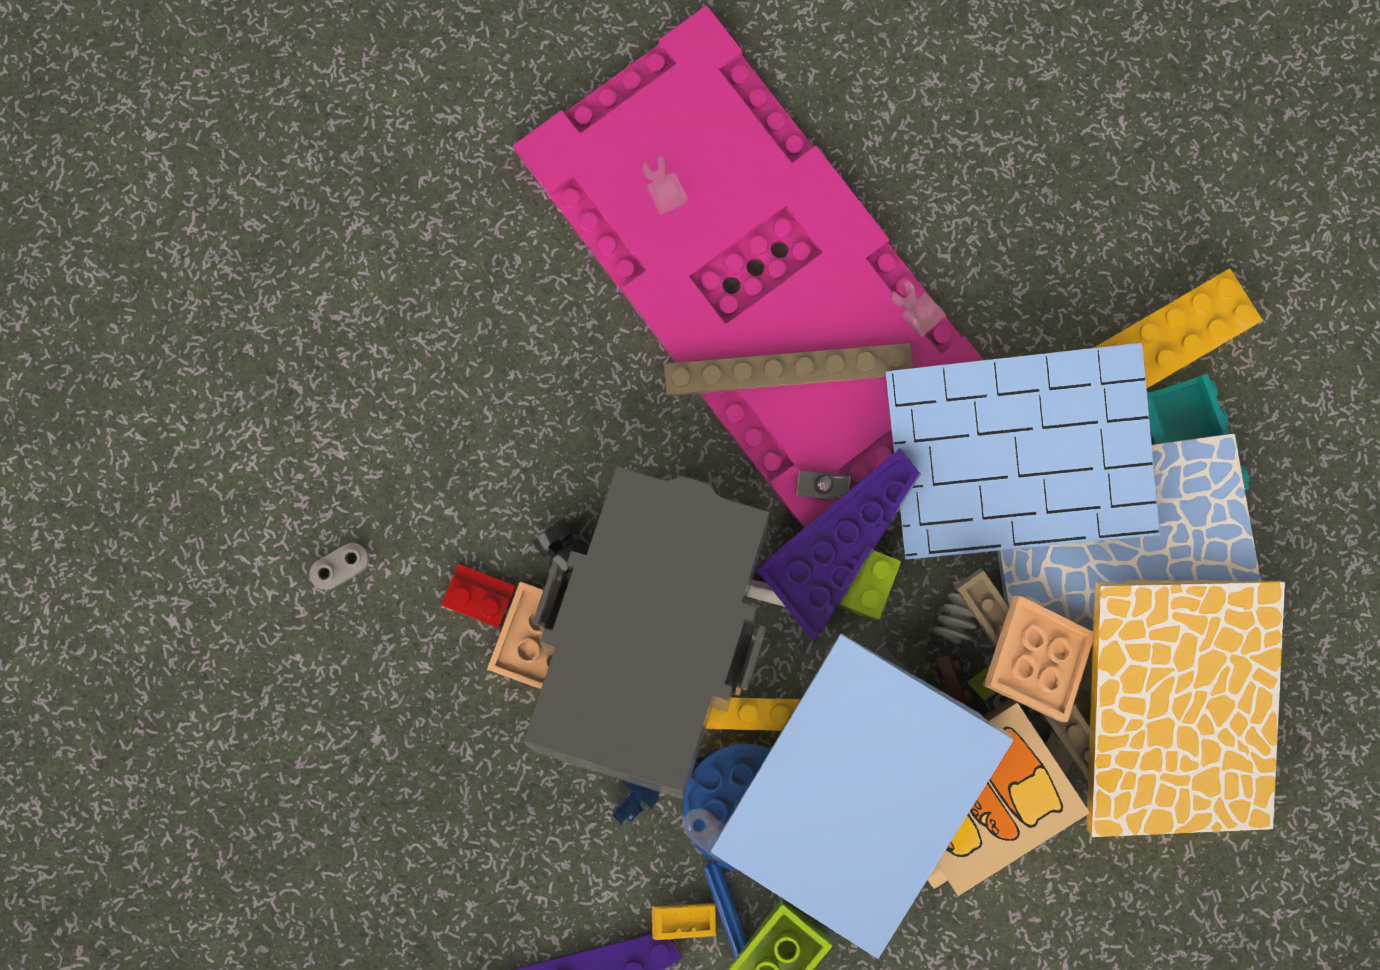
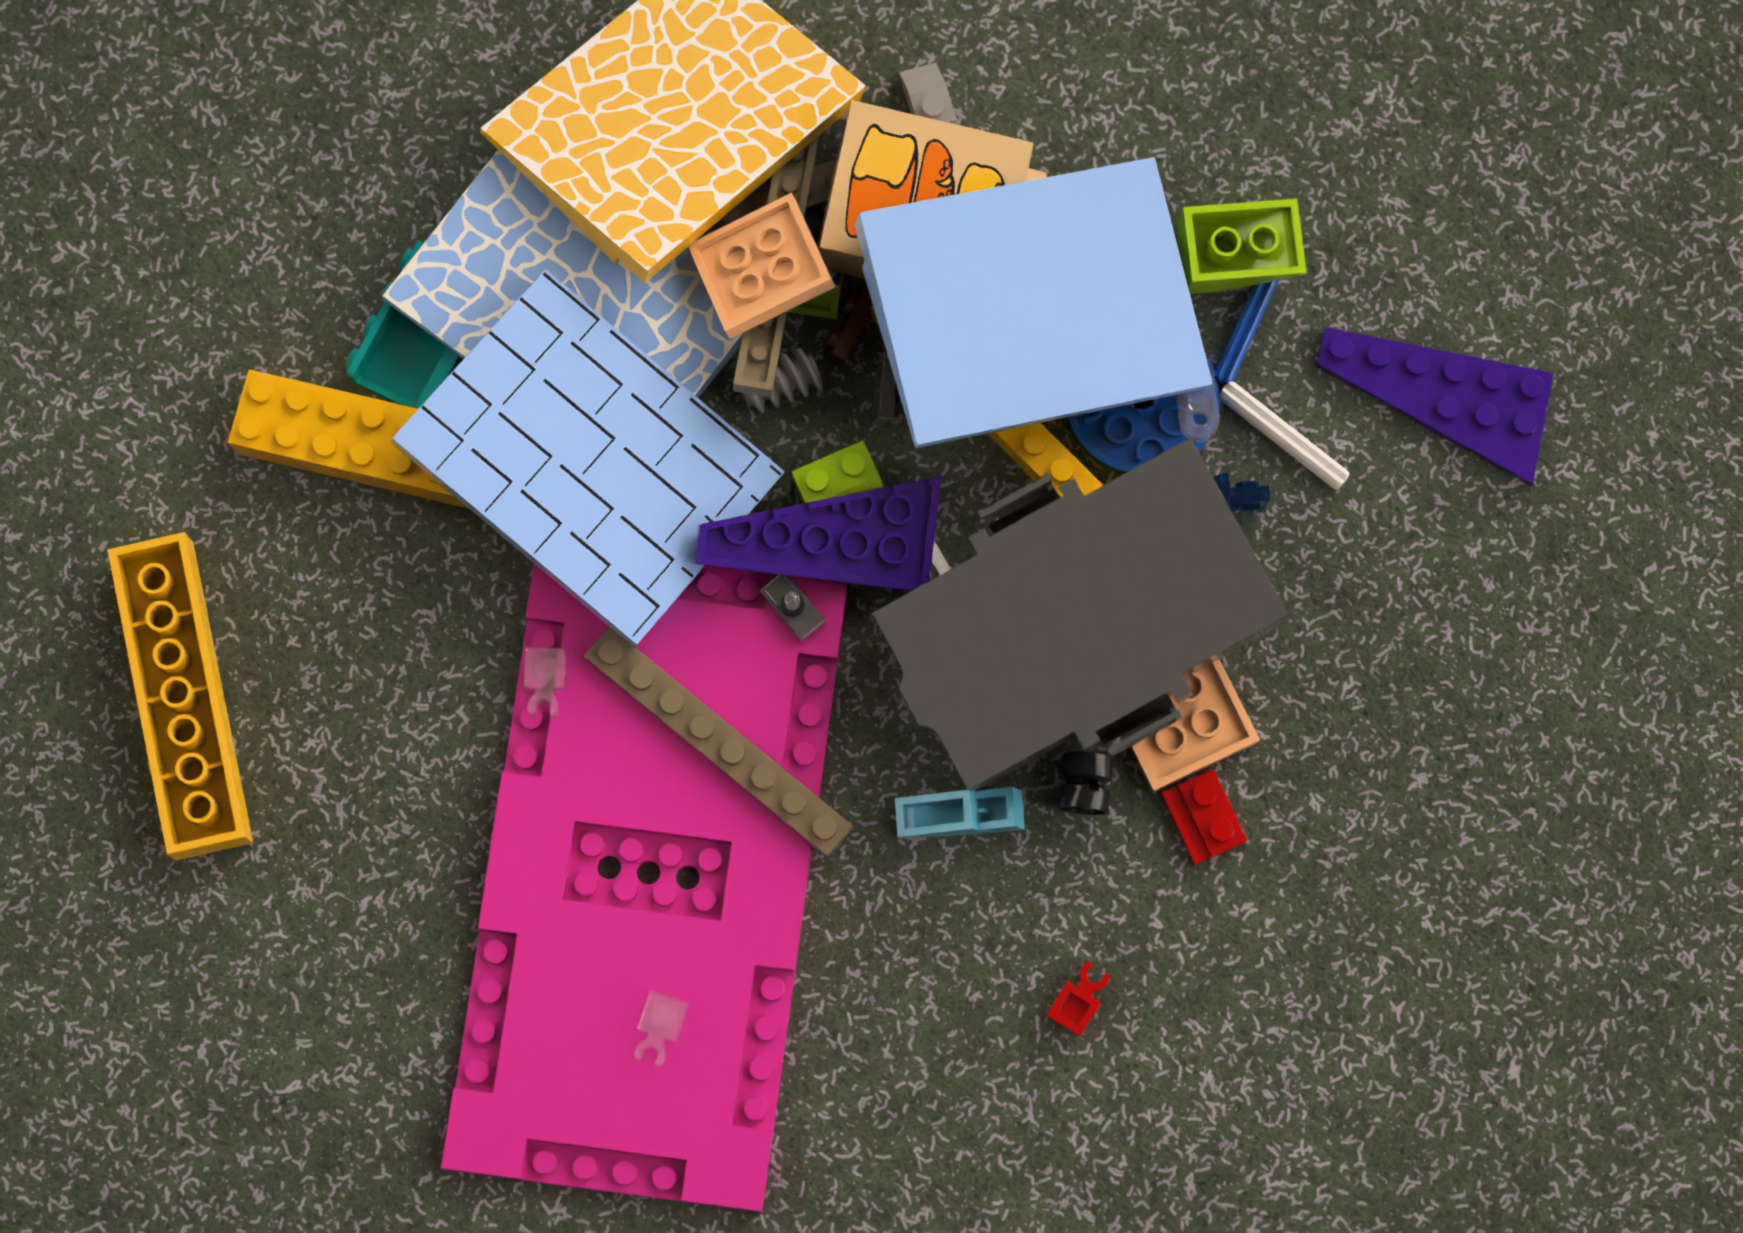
camera: 130 degrees left, 5 degrees down
(339, 567) = (1309, 969): light grey plate -> none
(449, 421) = (1075, 1004): none -> red plate
(624, 453) = (960, 813): none -> medium azure slope
(643, 867) = (1284, 435): none -> white axle
(683, 921) = (1292, 355): yellow plate -> none
(1048, 869) = (928, 93): none -> light grey slope
(1107, 111) = (180, 696): none -> yellow brick

